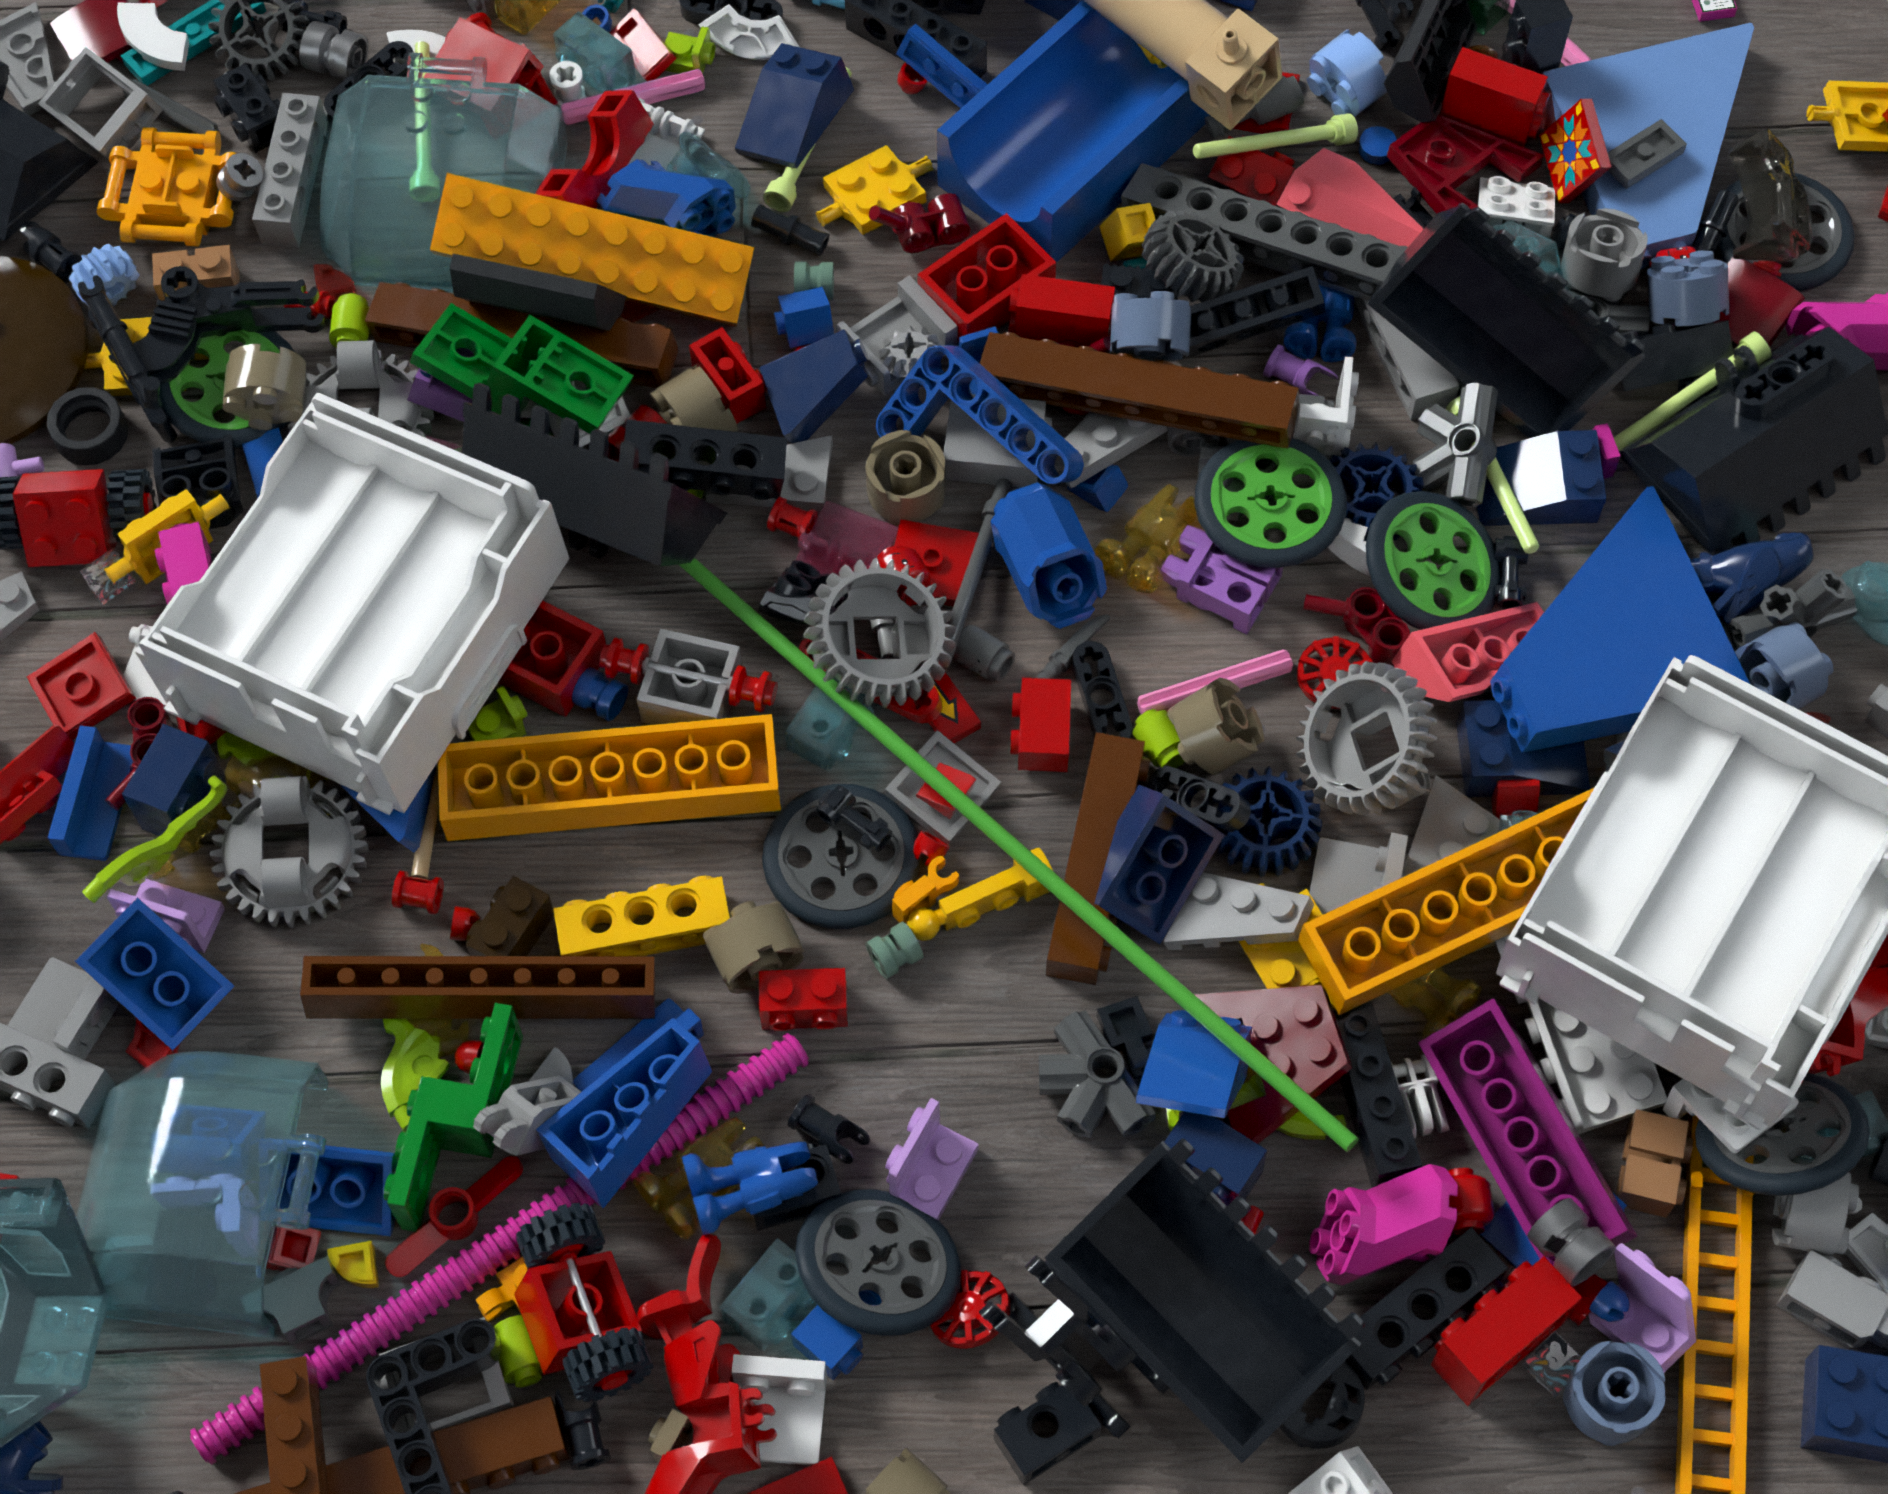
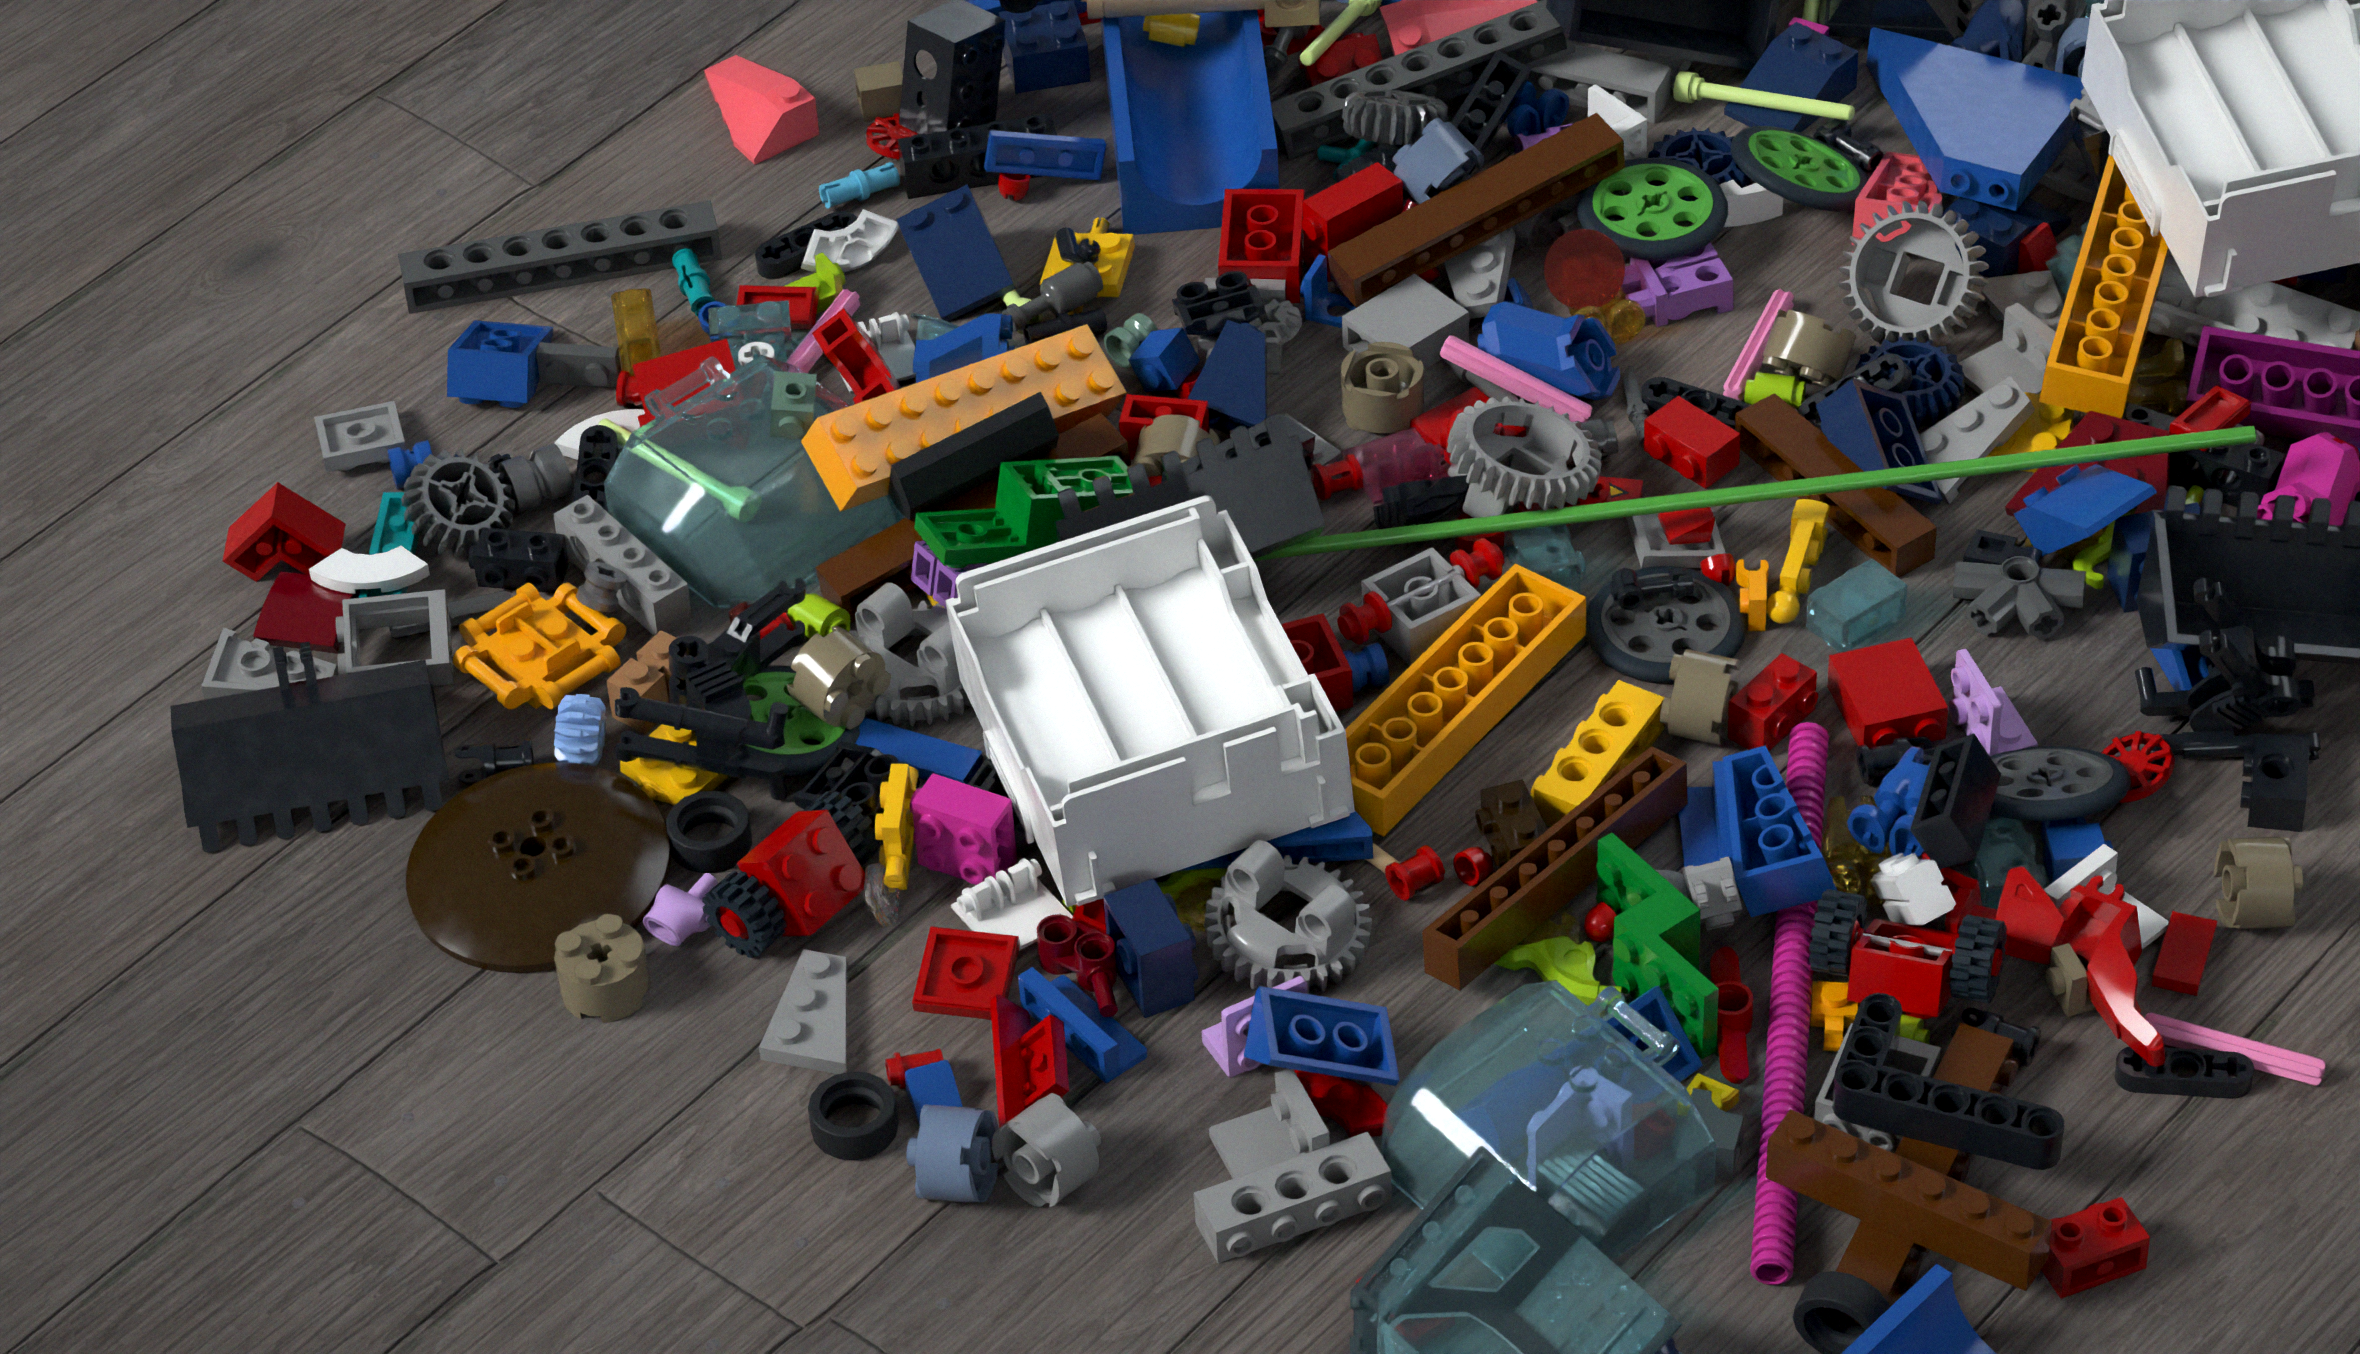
camera: 45 degrees left, 20 degrees down
(177, 842) = (1207, 980): lime piece -> none
(466, 146) = (792, 413): none -> sand green brick
(648, 1260) = (1912, 889): none -> white brick
(750, 1225) = (1956, 802): none -> black brick
(807, 200) = (1059, 294): none -> dark grey piece
(859, 172) = (1074, 253): none -> black arm
(869, 309) = (1207, 311): none -> black slope
(887, 1073) = (1887, 694): none -> red brick
(894, 950) = (1786, 633): sand green wheel -> none
(920, 230) = (1163, 252): dark red beam -> none
(965, 975) = (1856, 605): none -> clear light blue brick
(981, 408) = (1390, 296): blue beam -> none
(992, 558) = (1514, 379): none -> bright pink axle
(1125, 231) = (1317, 148): yellow brick -> none
(1147, 510) = (1584, 269): none -> clear red piece
(1329, 665) = (1820, 281): red wheel -> none
(1372, 628) = (1805, 228): dark red beam -> none
(1399, 1080) = (2212, 411): none -> red tile
(1453, 435) = (1708, 95): dark grey piece -> none

